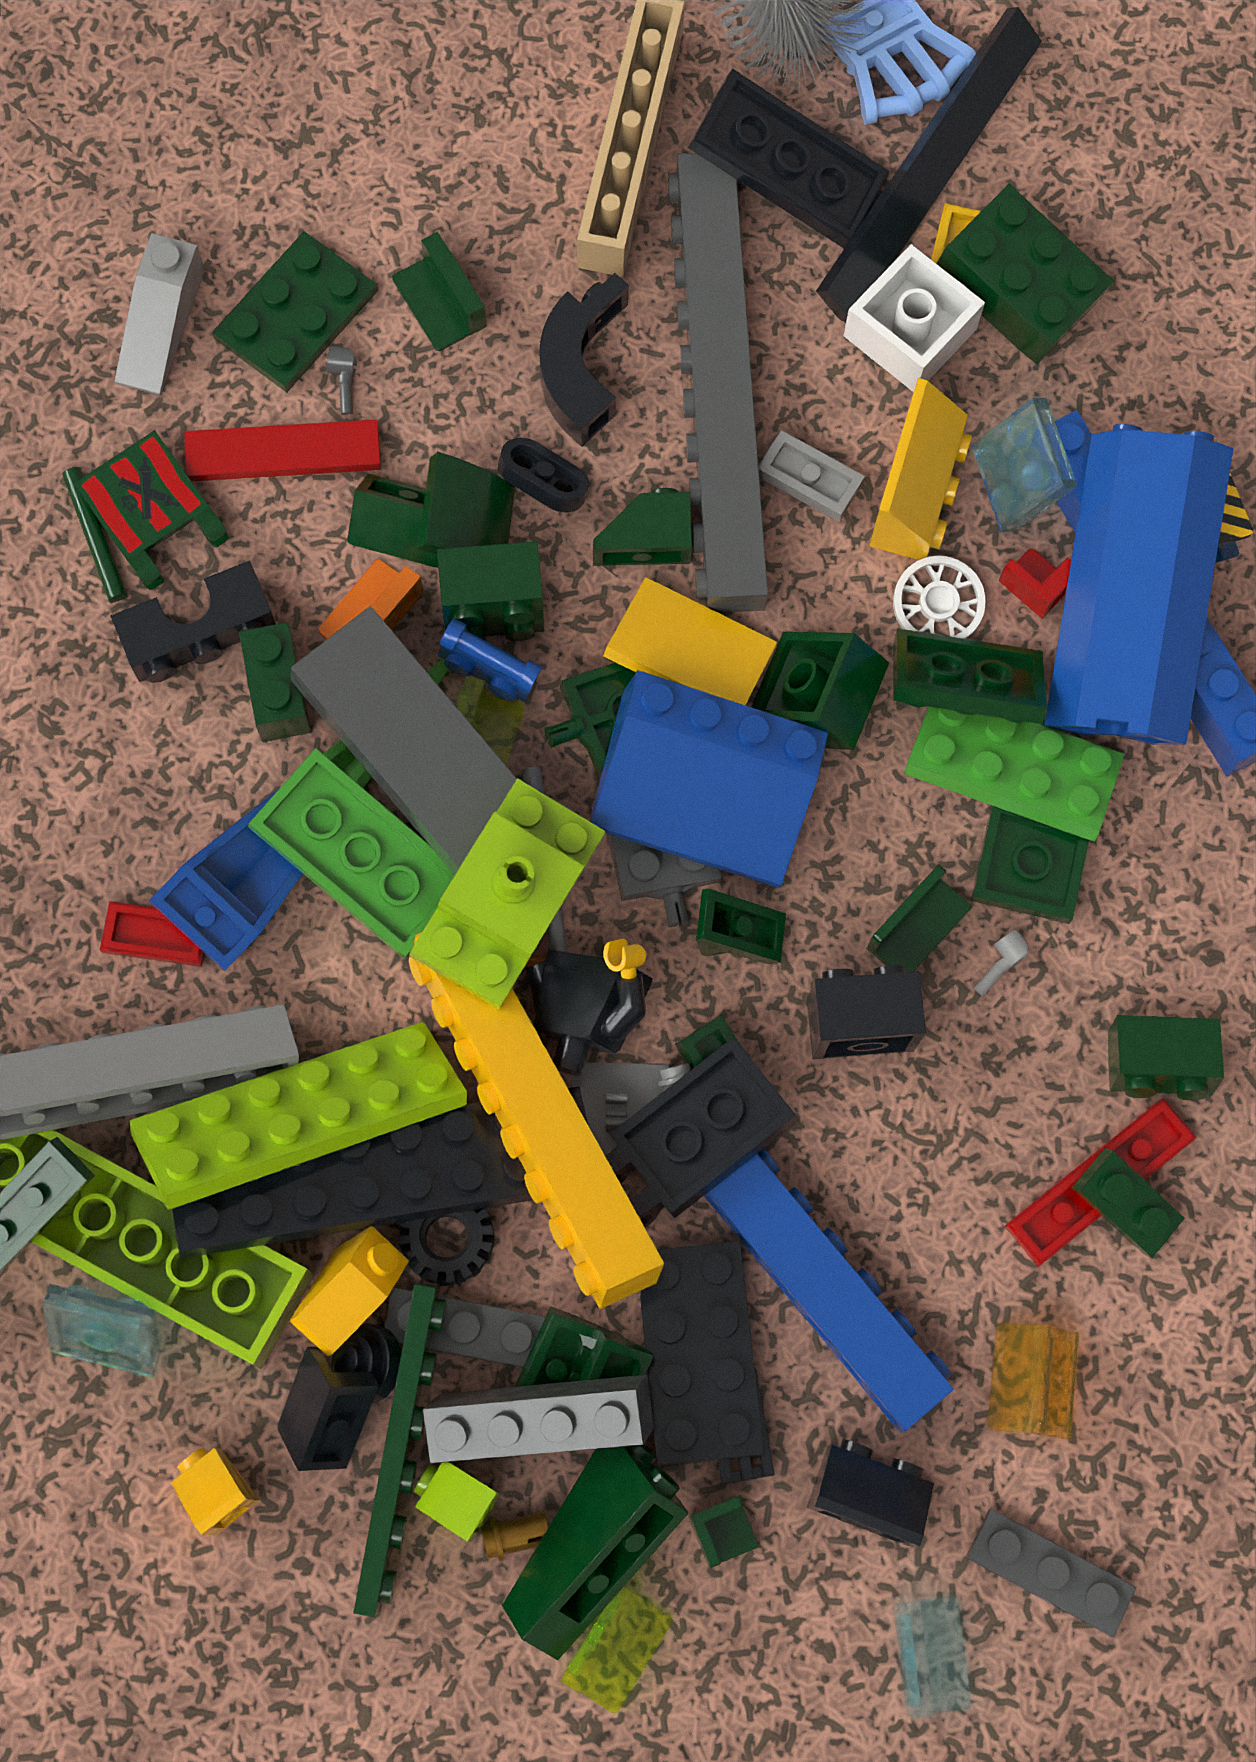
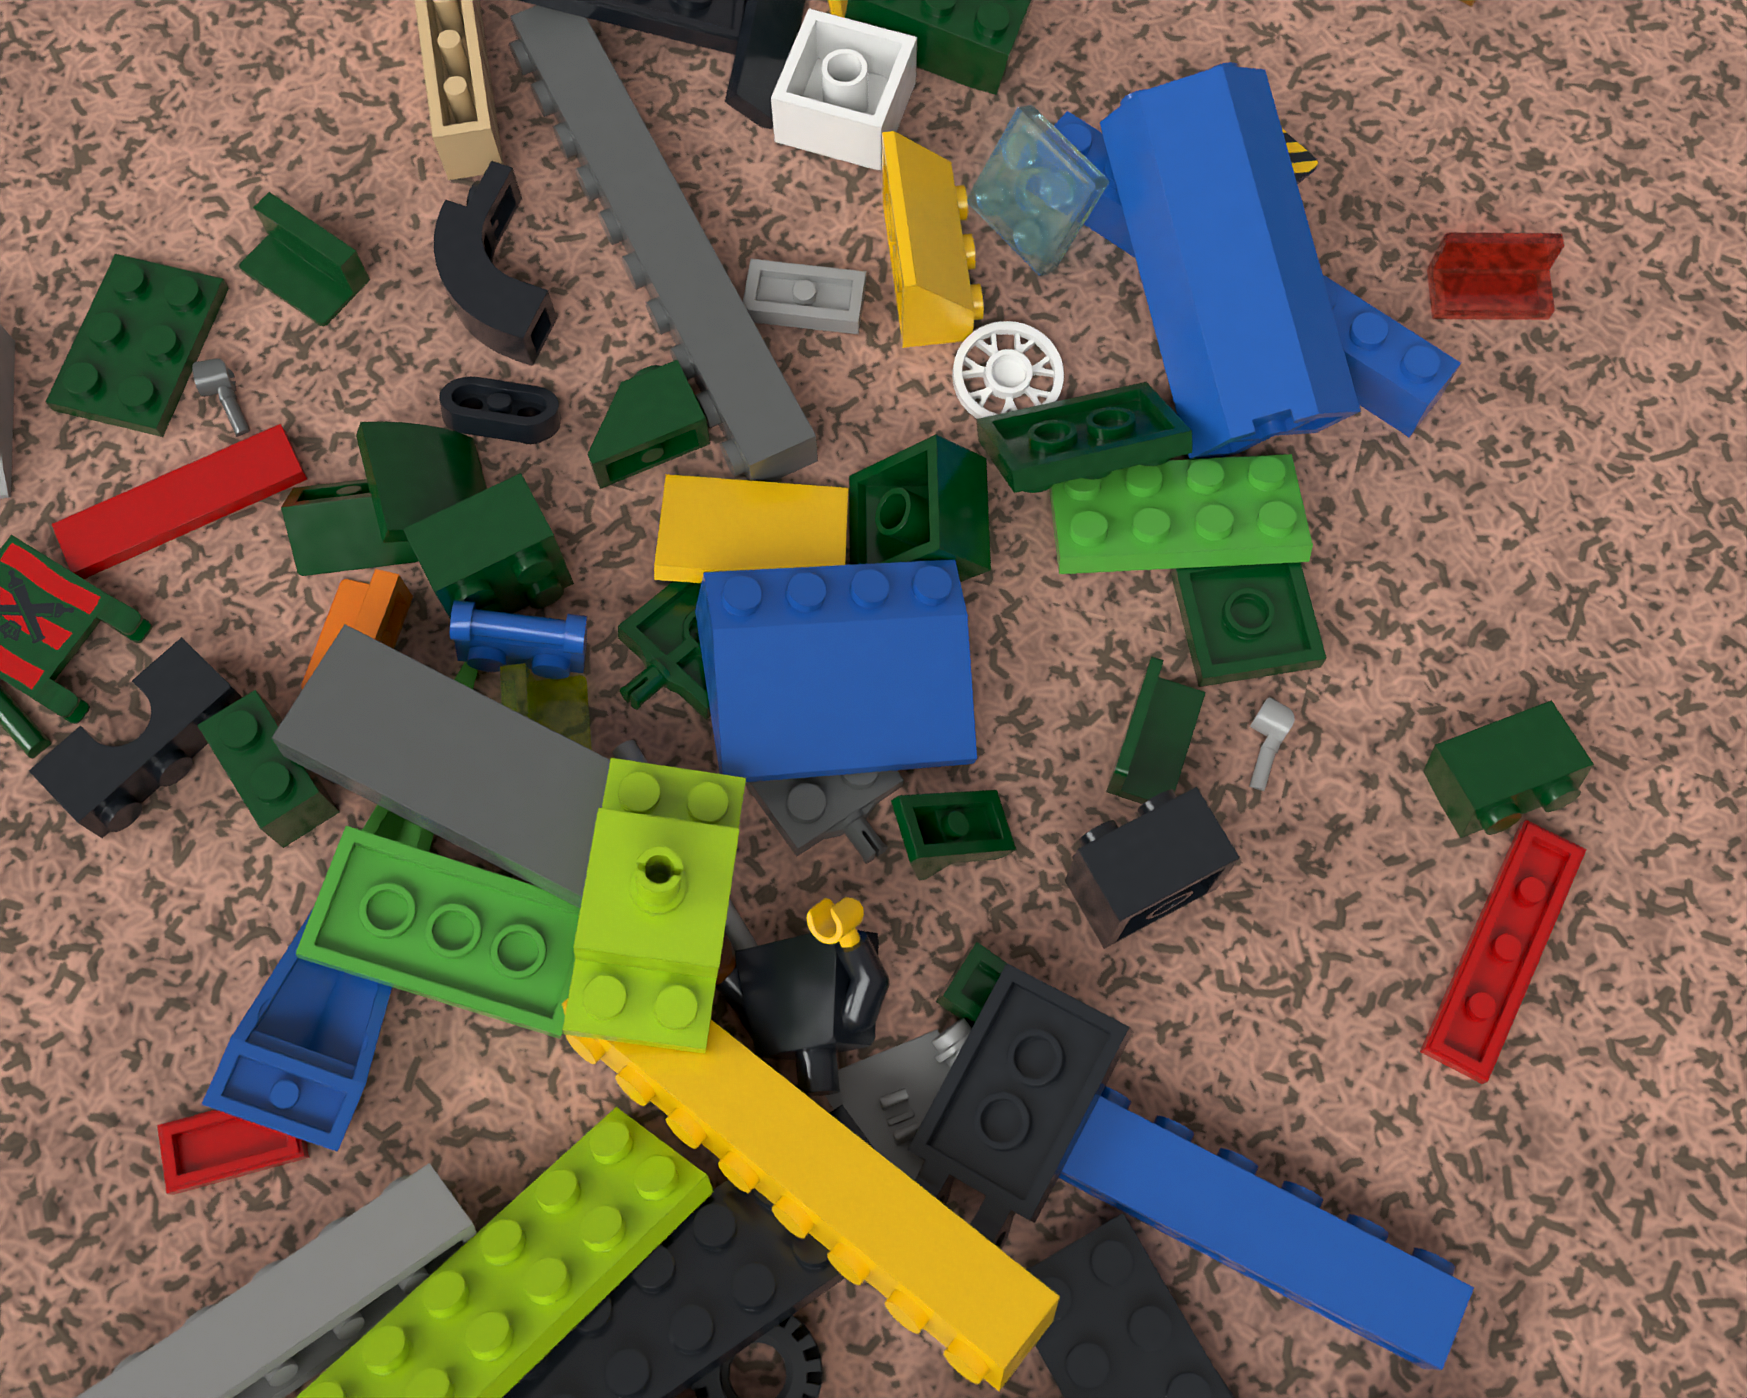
camera: 20 degrees left, 5 degrees down
(1033, 1380) = (1549, 1230): clear yellow panel -> none
(1036, 581) = (1105, 312): red panel -> none
(1128, 1202) = (1552, 960): dark green plate -> none

